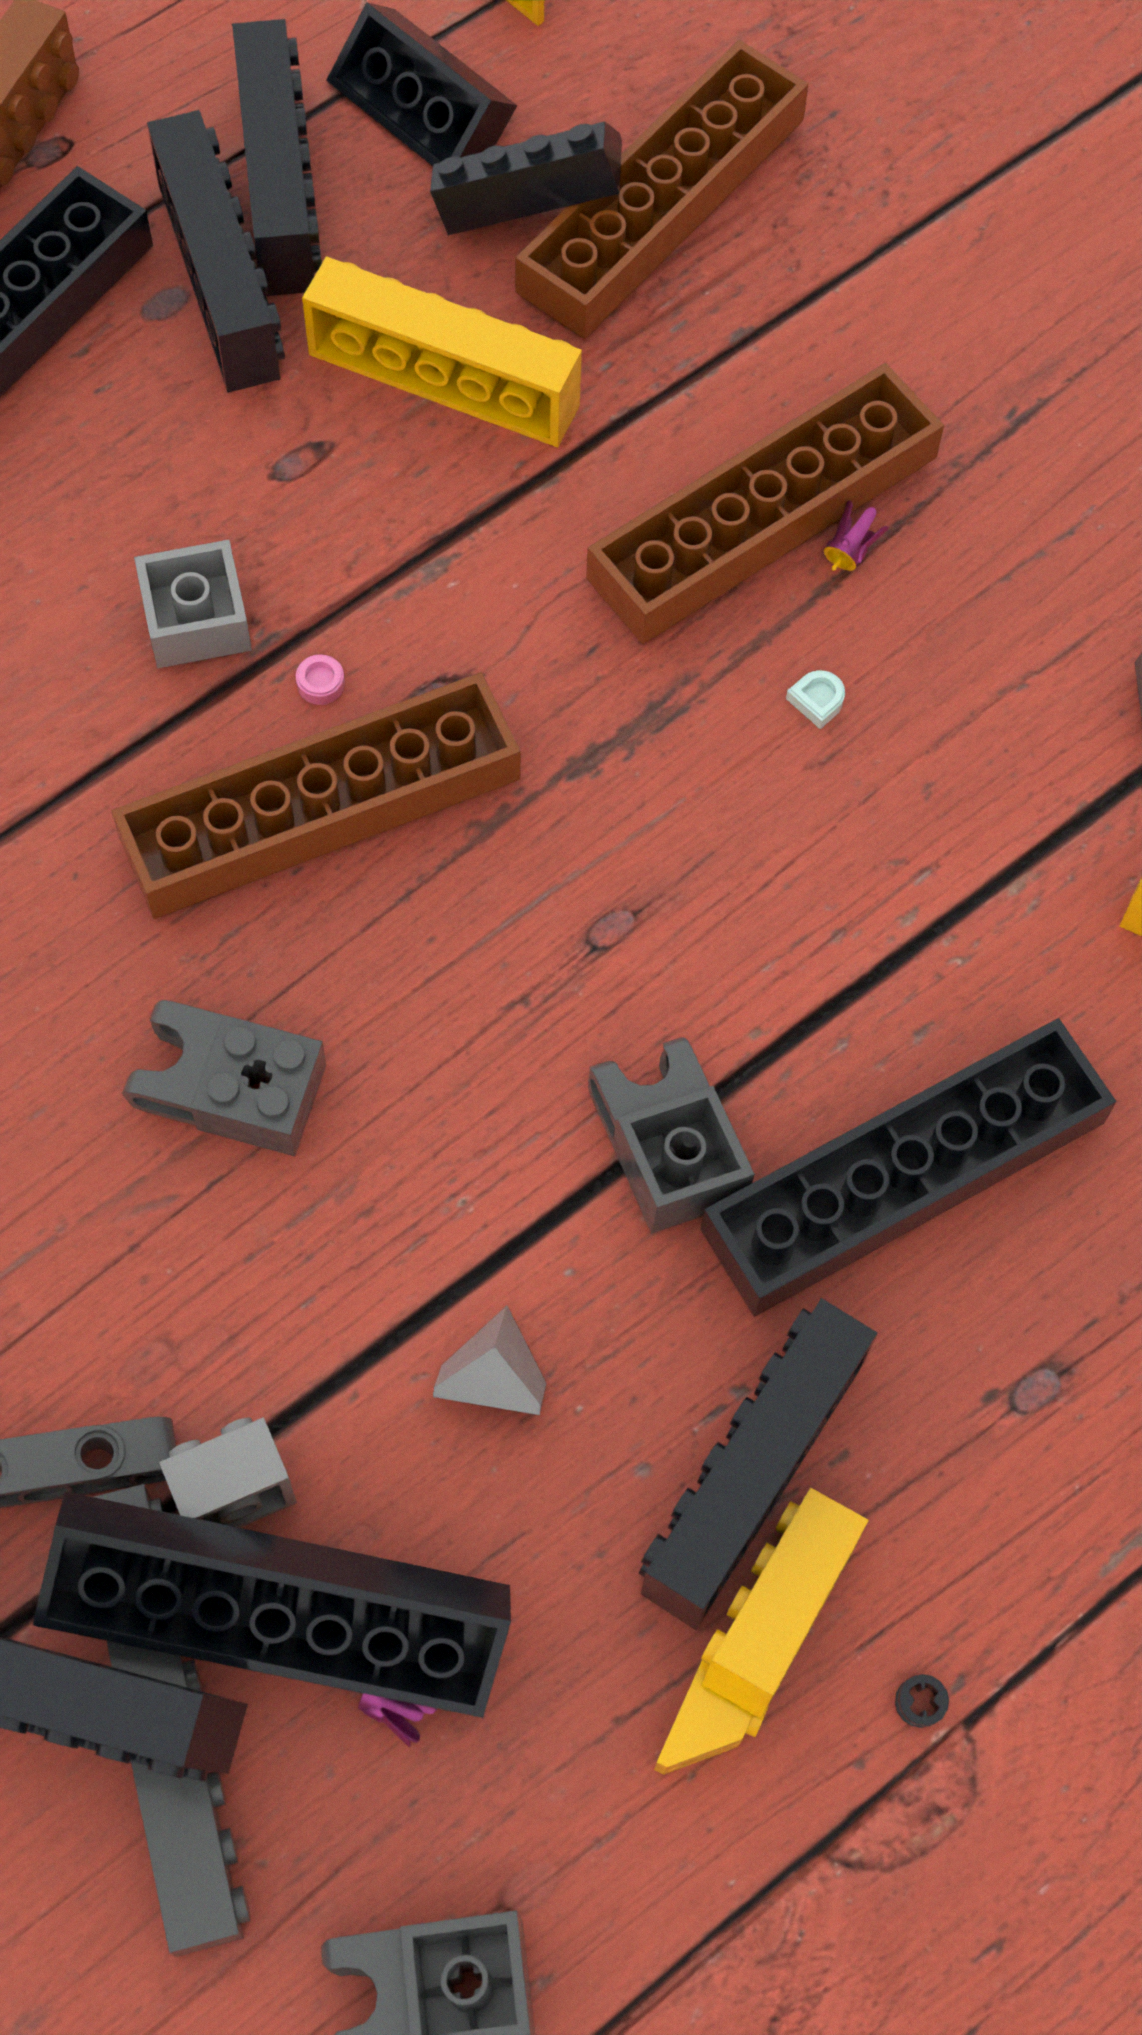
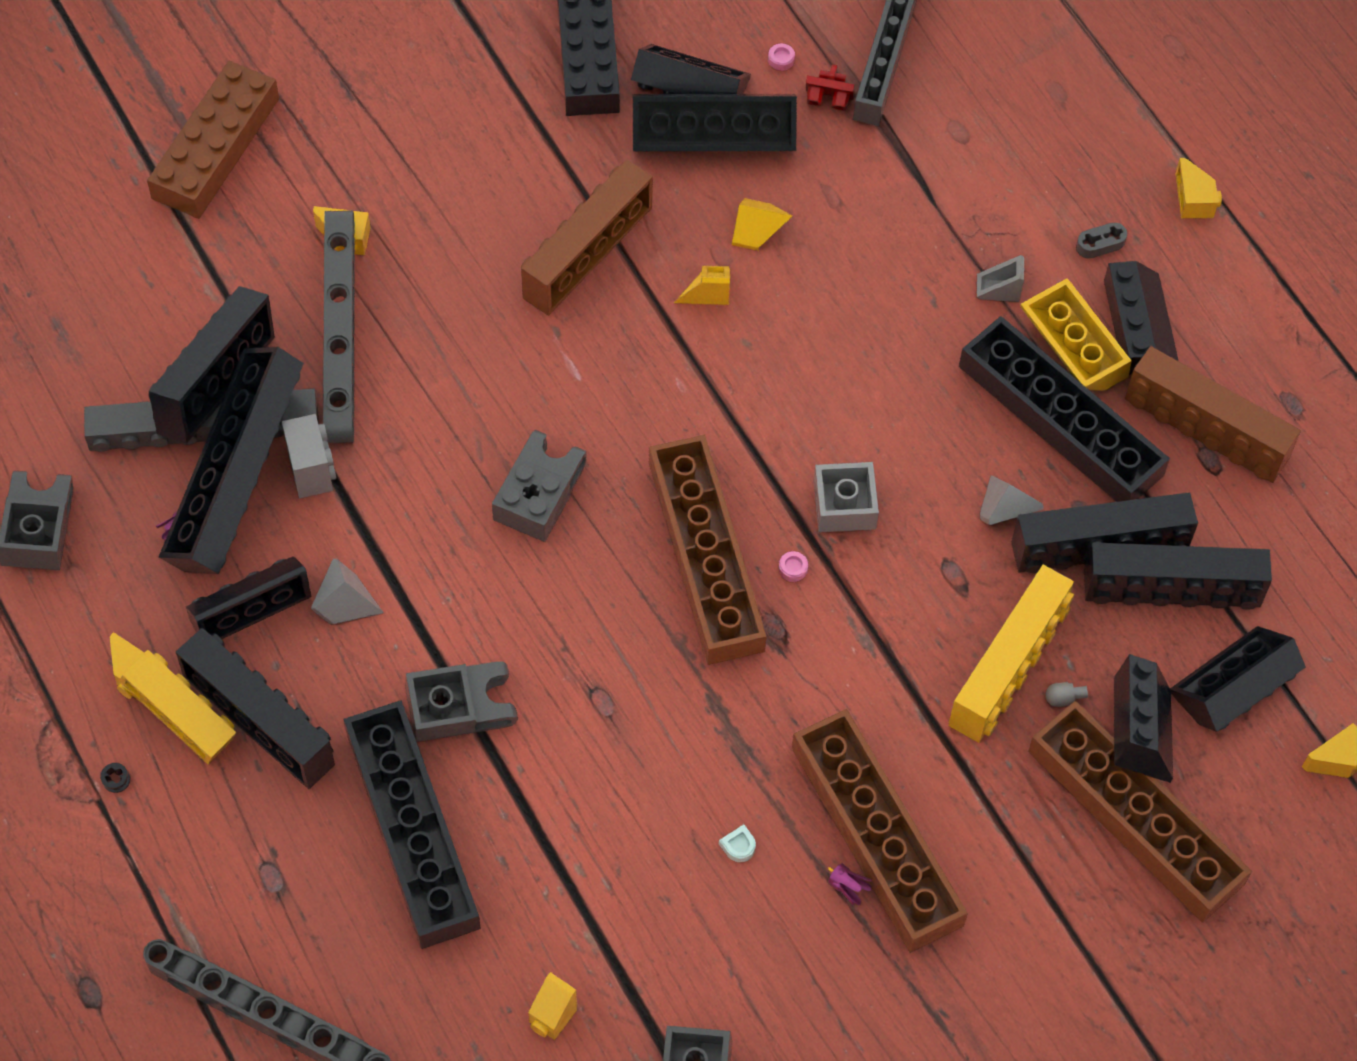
camera: 100 degrees right, 5 degrees down
(168, 396) = (1005, 502): none -> light grey slope
(484, 293) = (1064, 694): none -> light grey cylinder
(537, 1531) = (251, 599): none -> black slope

